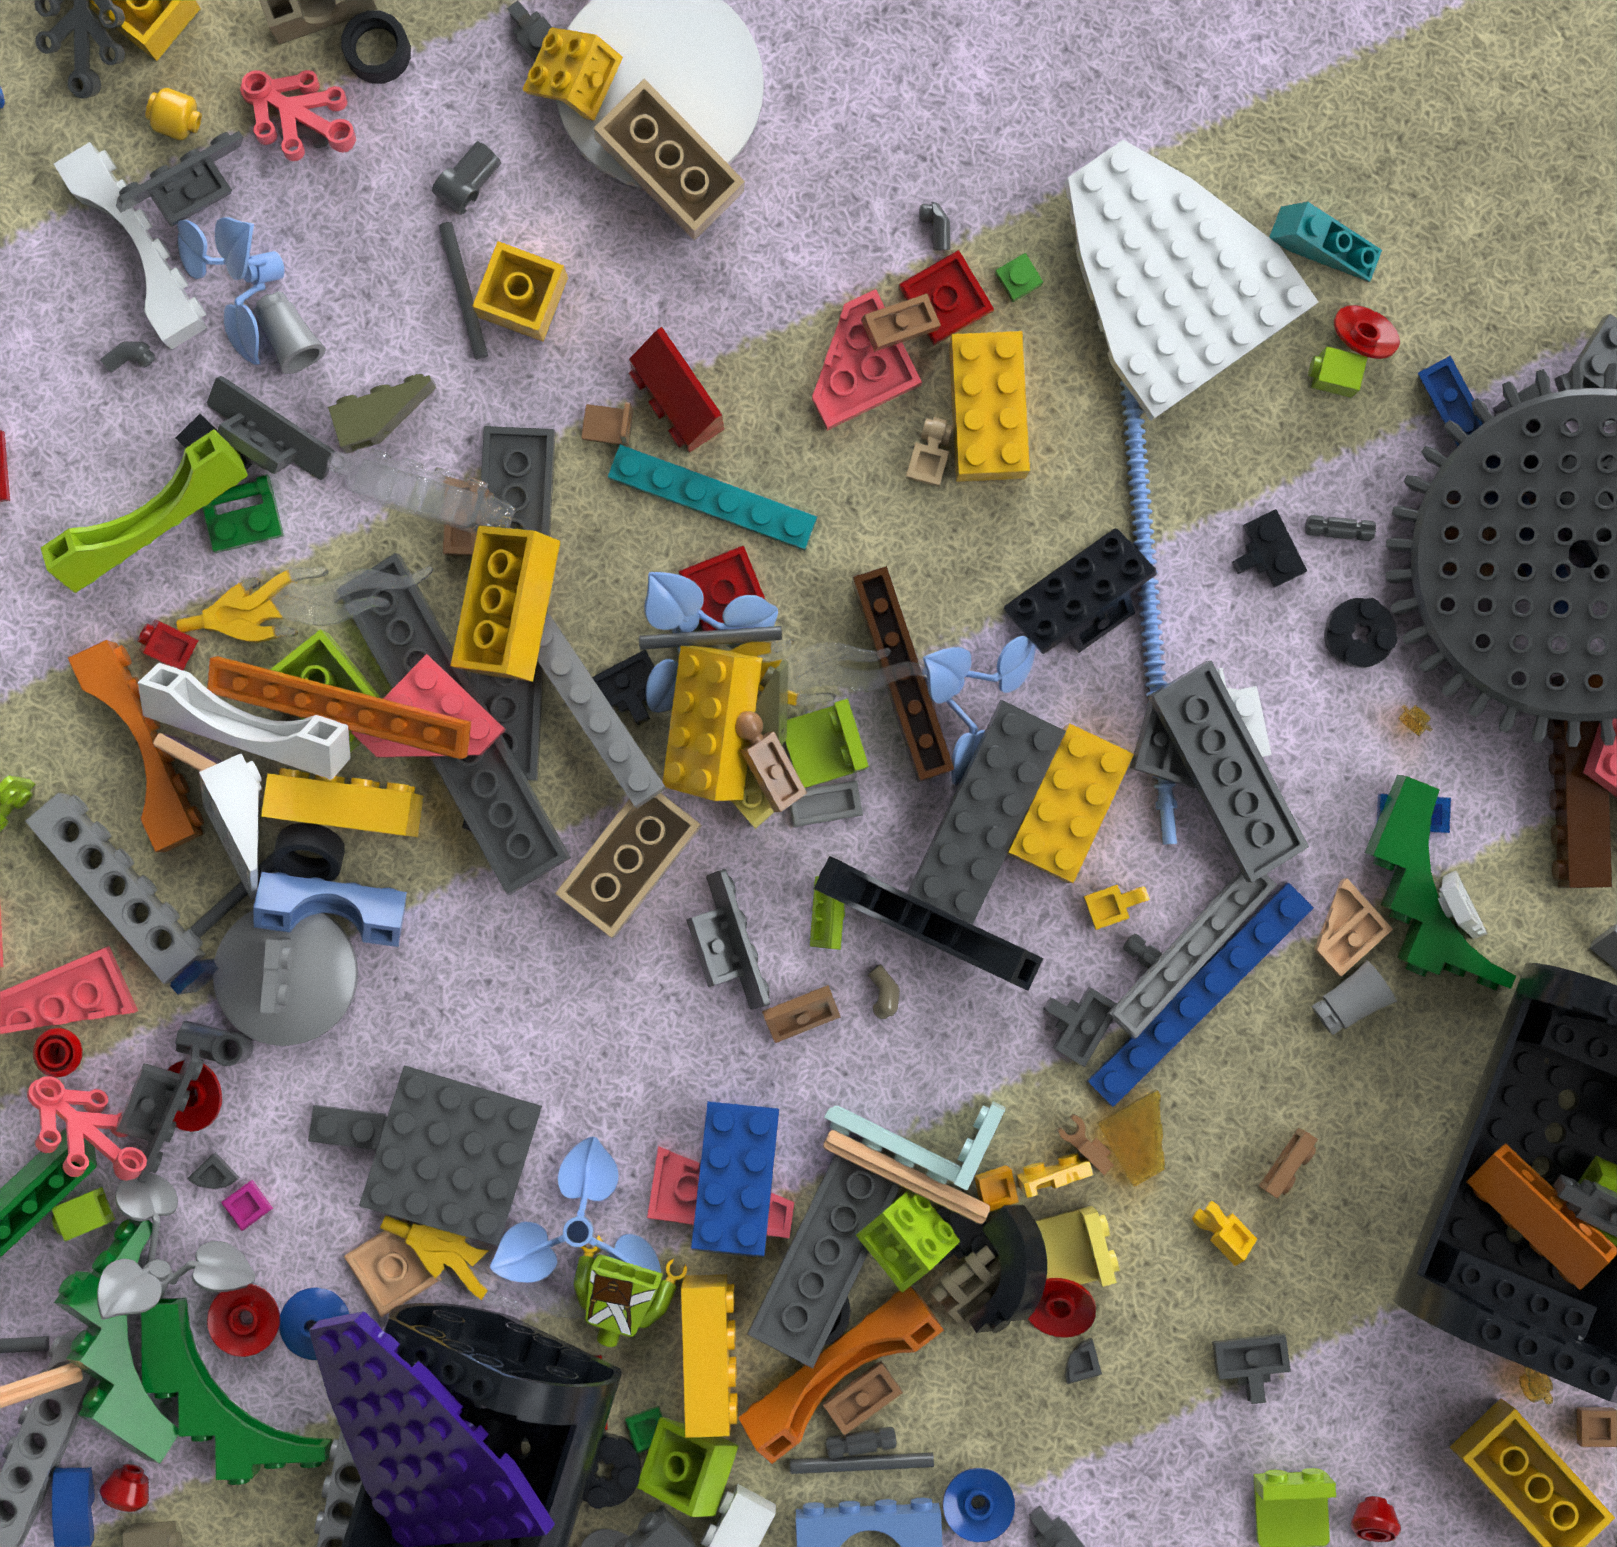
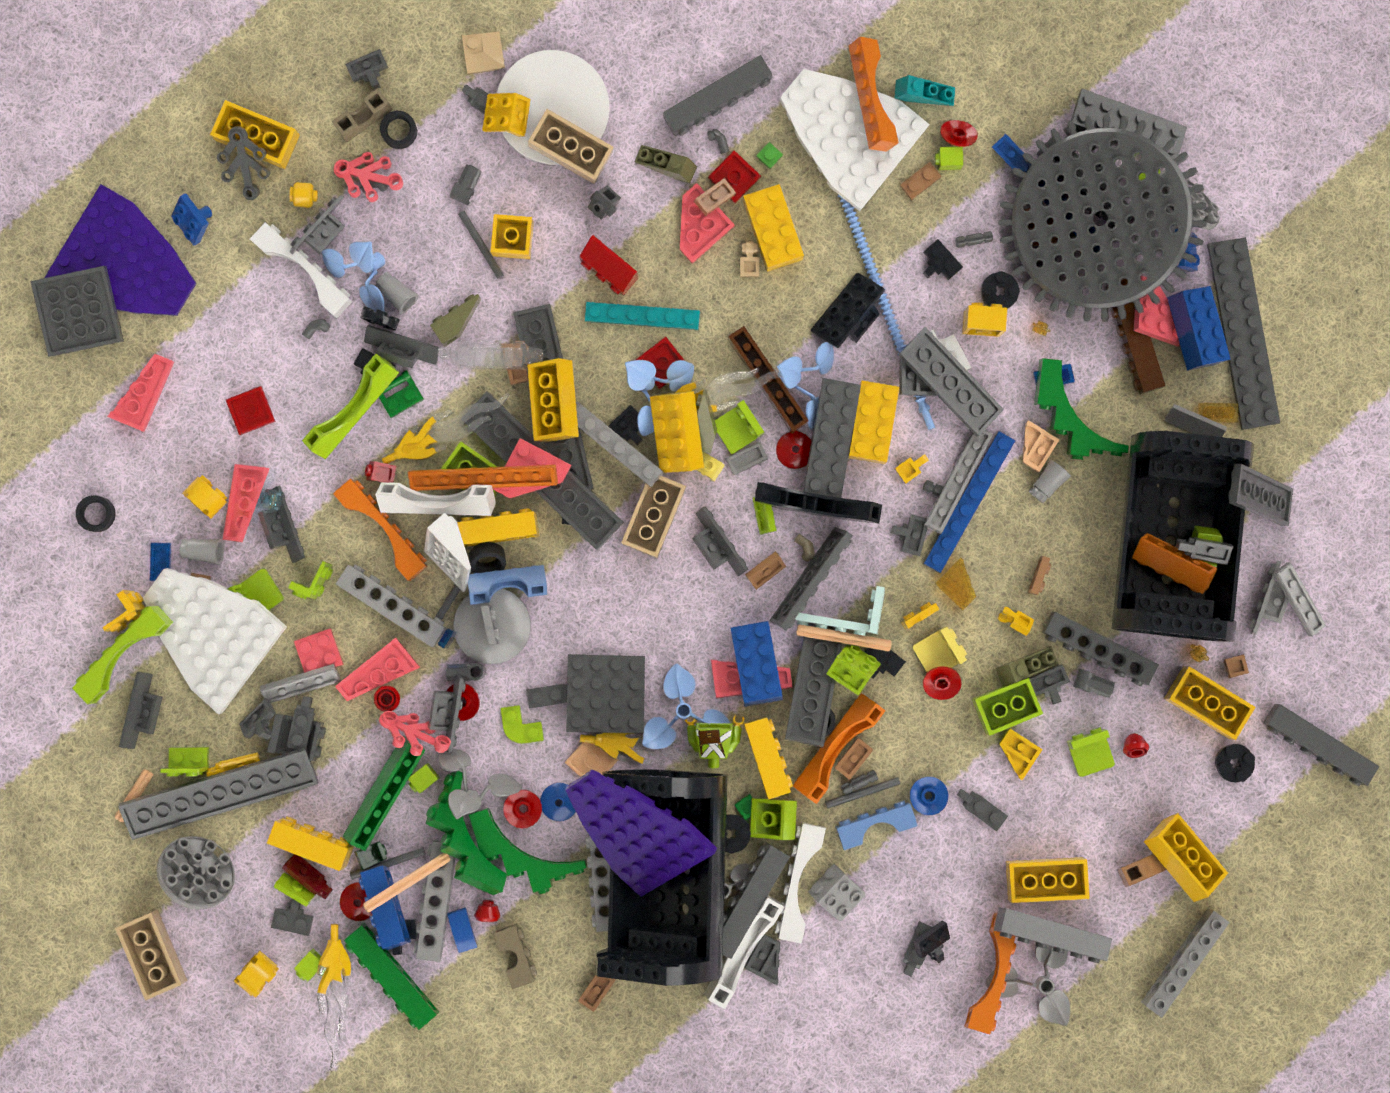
camera: 10 degrees left, 0 degrees up
(185, 751) = (411, 525): light nougat tile -> none
(213, 1173) = (484, 739): dark grey tile -> none
(242, 369) = (379, 318): none -> black plate
(247, 1205) = (506, 750): dark pink tile -> none
(275, 1174) = (516, 730): none -> lime plate
(608, 424) = (576, 293): medium nougat bracket -> none
(701, 277) = (604, 202): none -> dark grey brick
(710, 637) = (663, 388): dark grey bar -> none
(769, 763) = (712, 444): medium nougat plate -> none
(833, 240) = (666, 163): none -> olive slope
(877, 1053) = (810, 578): none -> dark grey plate
(897, 817) = (785, 453): none -> red dish
(957, 146) = (717, 96): none -> dark grey brick
(976, 1293) = (898, 688): dark tan plate -> none
(996, 1187) = (892, 631): light orange plate -> none
(1022, 1269) = (917, 669): black arch -> none
(1082, 1362) = (962, 708): dark grey tile -> none
(1093, 1151) = (936, 597): medium nougat plate -> none
(1164, 1471) = (1019, 752): none -> yellow wing
(1165, 1384) = (1007, 706): none -> lime brick
(1219, 1320) = (1026, 666): none -> olive slope
(1228, 278) = (879, 128): none -> orange arch
(1274, 398) = (920, 181): none -> medium nougat plate
(1320, 677) = (984, 320): none -> yellow brick
(1326, 1382) = (1090, 682): none -> dark grey piece
(1432, 1386) = (1146, 667): none -> dark grey brick
(1457, 903) = (1087, 415): white wing -> none

